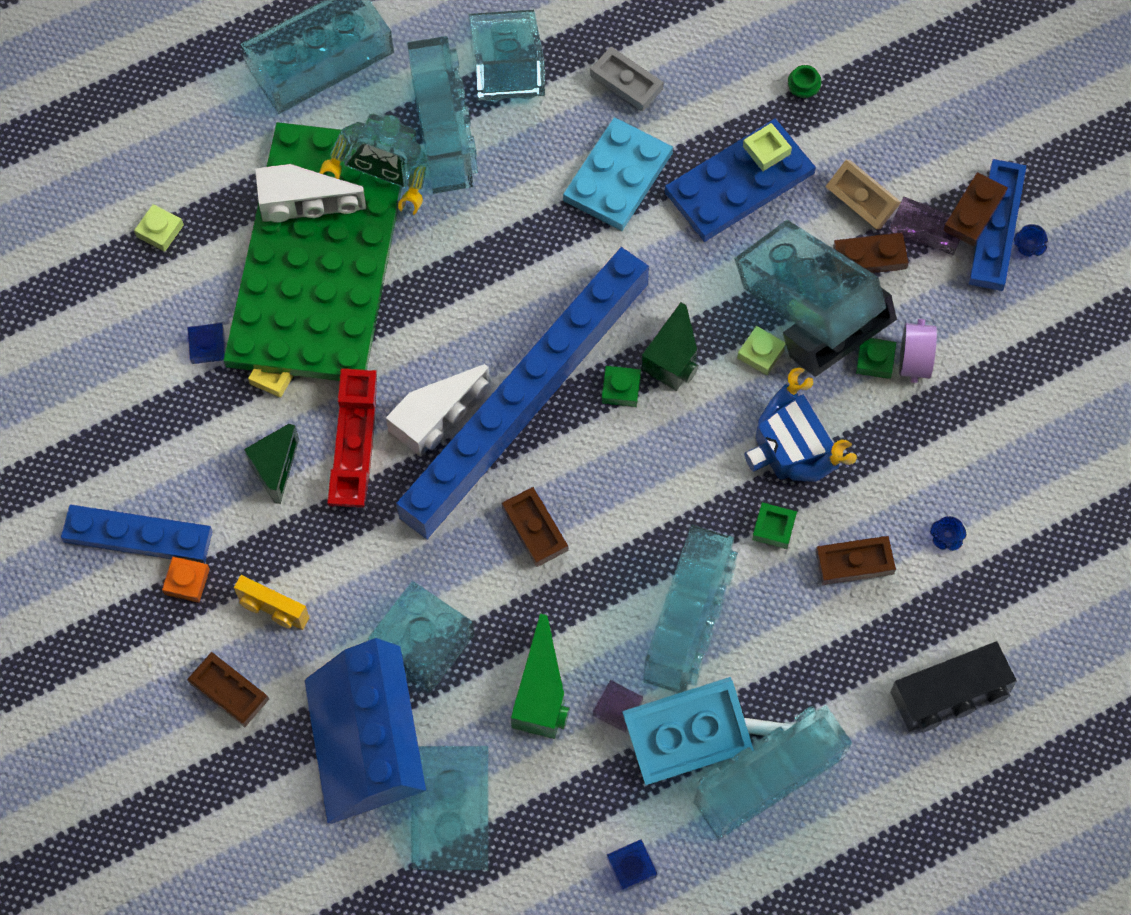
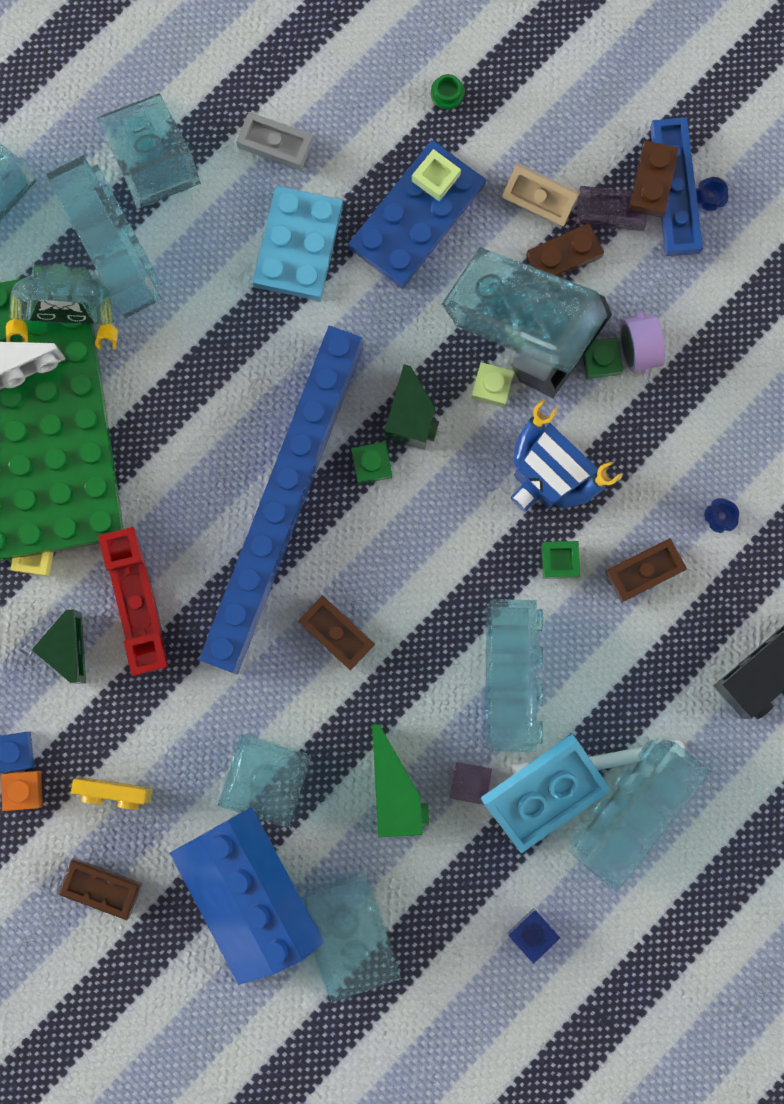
camera: 20 degrees left, 15 degrees up
(430, 410) = (197, 549): white slope -> none

